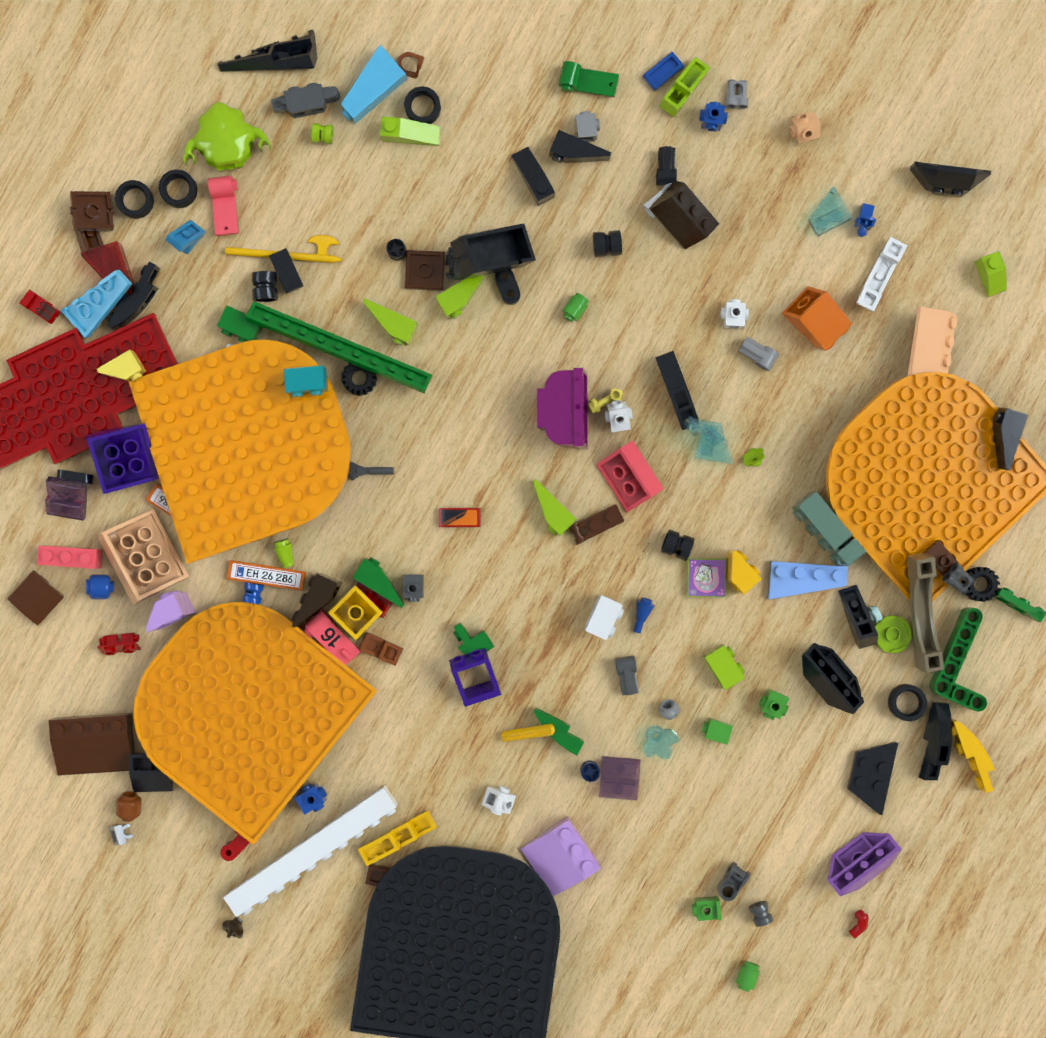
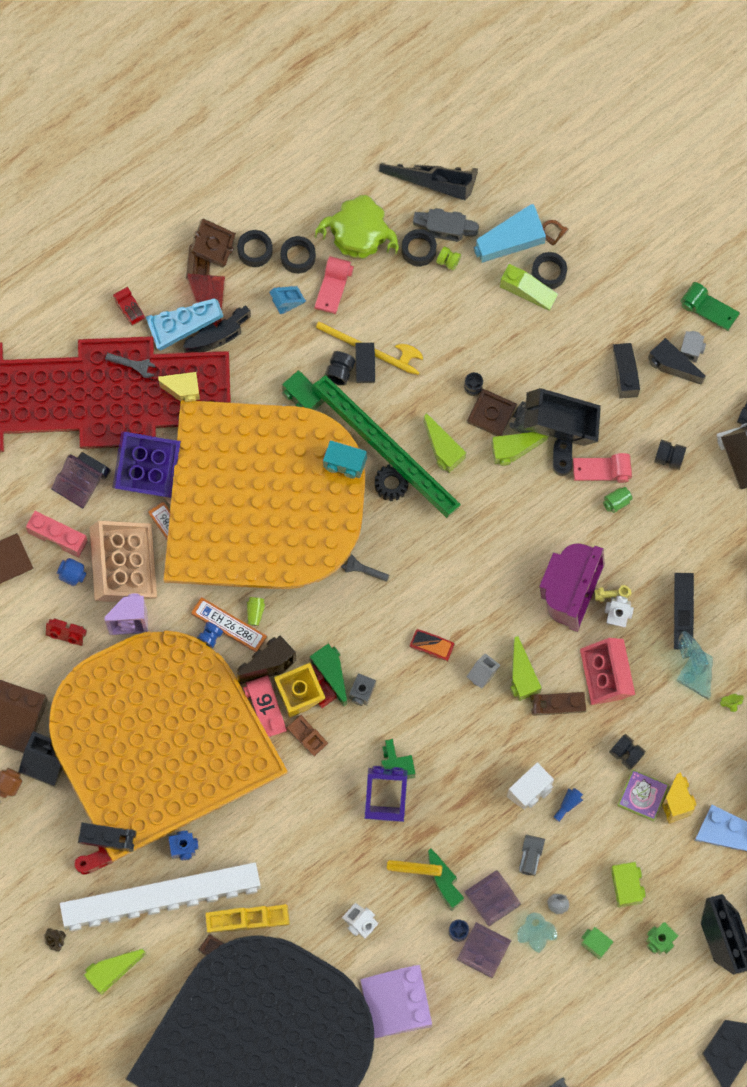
camera: 25 degrees right, 15 degrees down
(77, 363) = (140, 366): none -> dark grey piece
(237, 827) = (106, 837): none -> black plate
(281, 121) = (419, 234): none -> black tyre
(293, 937) = (109, 971): none -> lime slope
(516, 524) = (483, 671): none -> light grey brick
(550, 282) = (603, 469): none -> coral door
(608, 728) = (492, 898): none -> clear purple slope

